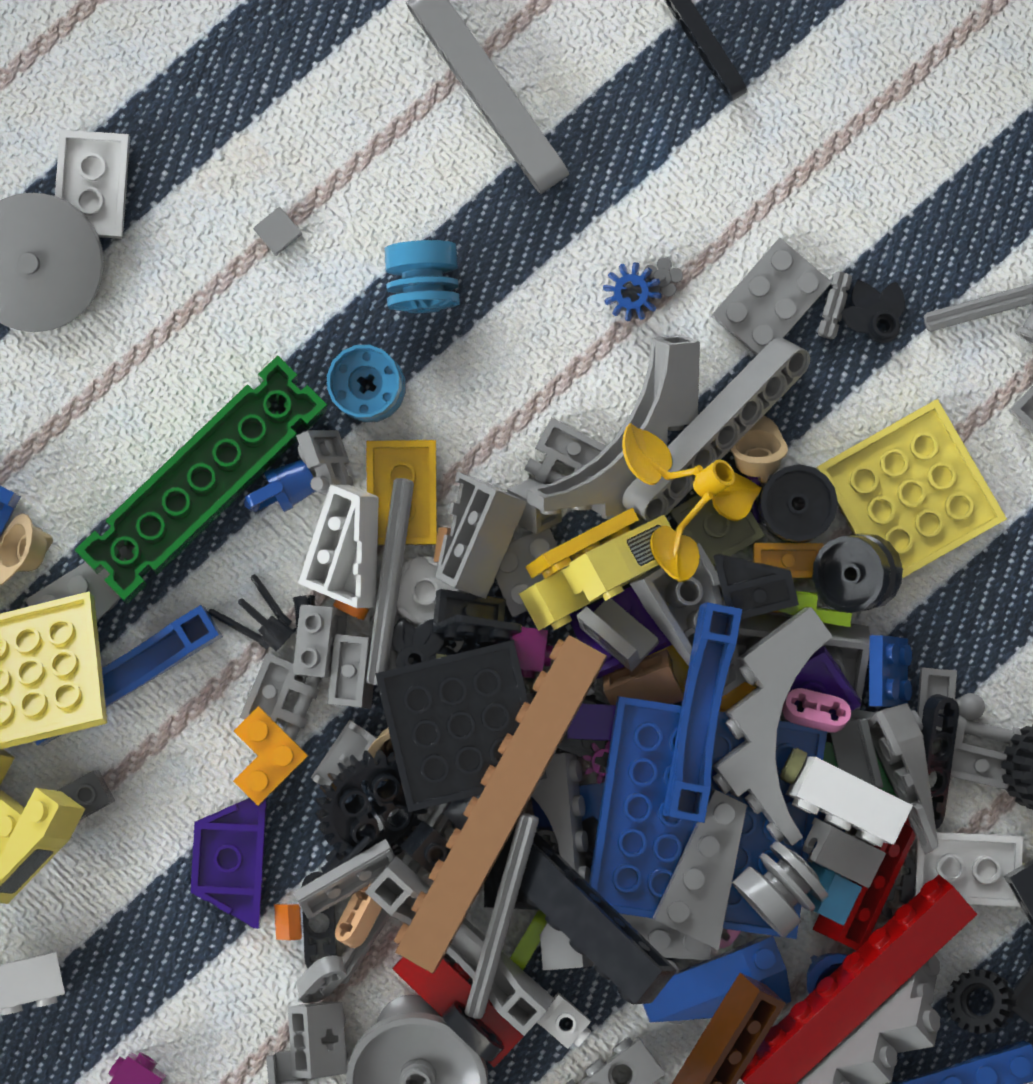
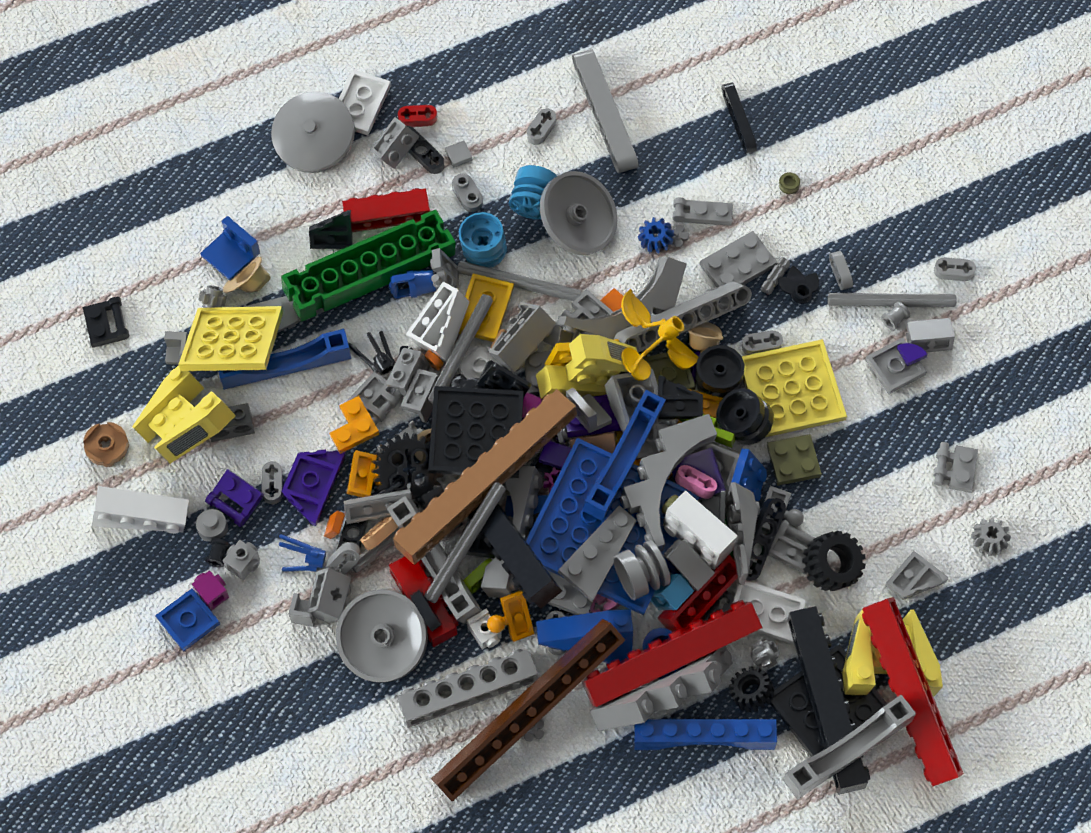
camera: 20 degrees right, 20 degrees down
(103, 975) = (211, 525): none -> light grey piece
(125, 436) = (332, 232): none -> black wing
(127, 911) = (237, 490): none -> dark purple plate
(127, 1017) = (217, 552): none -> black bush
(162, 880) = (267, 482): none -> light grey beam
(162, 1031) = (242, 559): none -> light grey brick
(170, 247) = (394, 143): none -> light grey bracket
(187, 173) = (417, 115): none -> red beam
(189, 235) = (424, 158): none -> black beam
(195, 368) = (387, 209): none -> red brick
(274, 981) = (314, 555): none -> blue plant
(301, 829) = (360, 475): none -> light orange plate
(312, 295) = (466, 191): none -> light grey plate
(386, 141) = (545, 128): none -> light grey beam
(441, 429) = (521, 281): none -> light grey axle
(503, 295) = (578, 213): none -> light grey dish
(599, 423) = (613, 300): none -> orange tile
(602, 997) = (515, 617): none -> light orange plate
(693, 224) = (702, 212): none -> light grey plate
(812, 133) = (789, 183): none -> olive tile
(848, 435) = (761, 342): none -> light grey beam
(934, 269) = (840, 270): none -> light grey beam
(943, 609) = (793, 459): none -> olive plate
(985, 938) = (765, 653): none -> light grey gear

